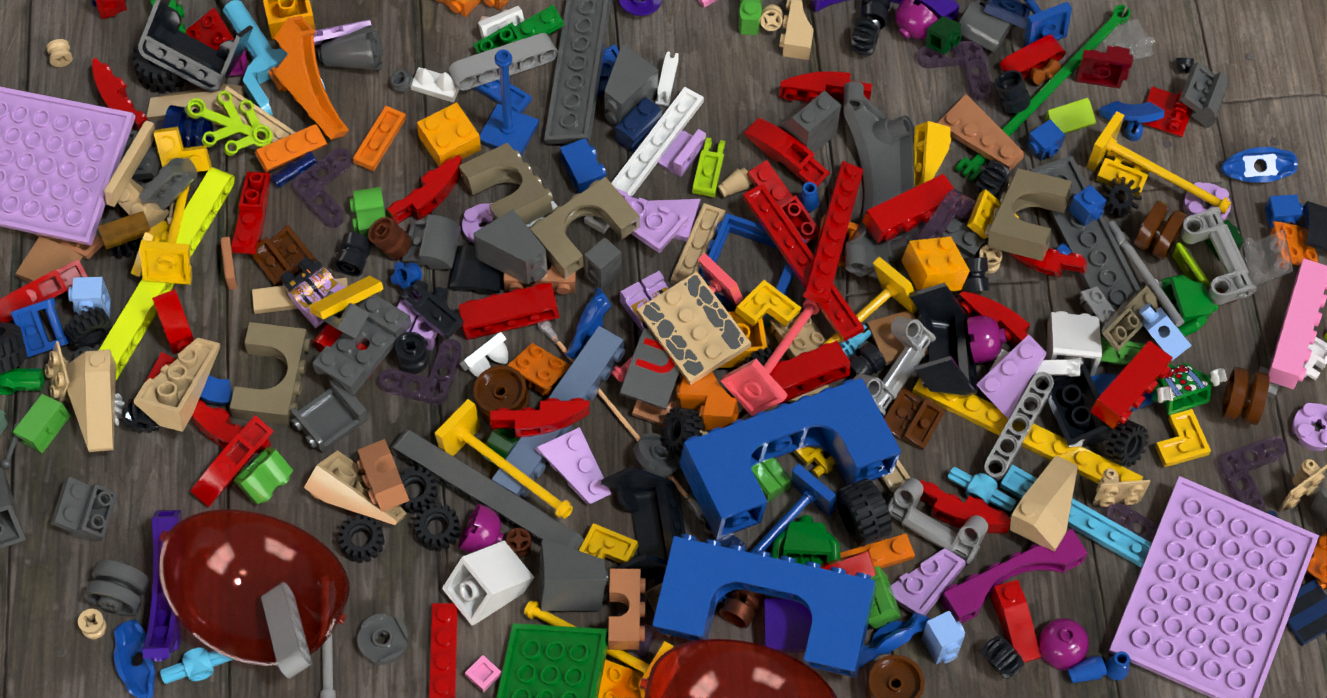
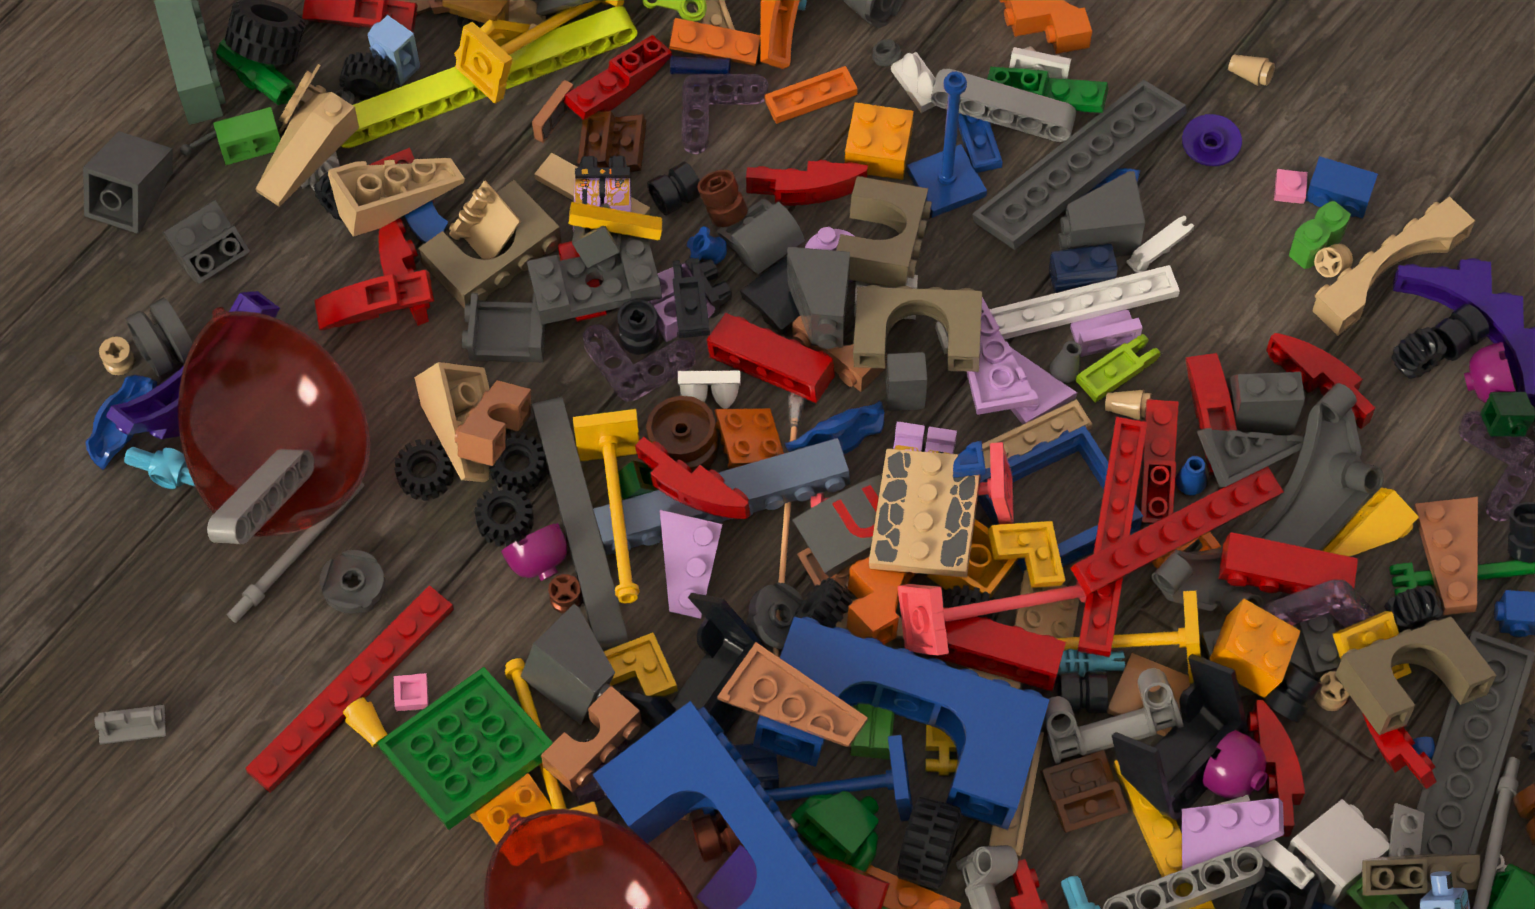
camera: 45 degrees right, 0 degrees up
(33, 330) = (318, 42): blue plate -> none
(173, 321) = (443, 124): red slope -> none
(256, 361) = (485, 222): none -> tan hinge
(263, 476) = (390, 338): bright green brick -> none
(368, 208) = (733, 152): bright green brick -> none
(487, 581) = (497, 605): white slope -> none
(581, 164) = (986, 266): blue brick -> none
(681, 186) = (1067, 363): none -> dark grey cone
(694, 278) = (970, 461): none -> blue tile
(726, 488) = (786, 695): none -> nougat wing
(827, 162) = (1240, 454): none -> dark grey wing
(1087, 205) = (1495, 717): blue brick -> none

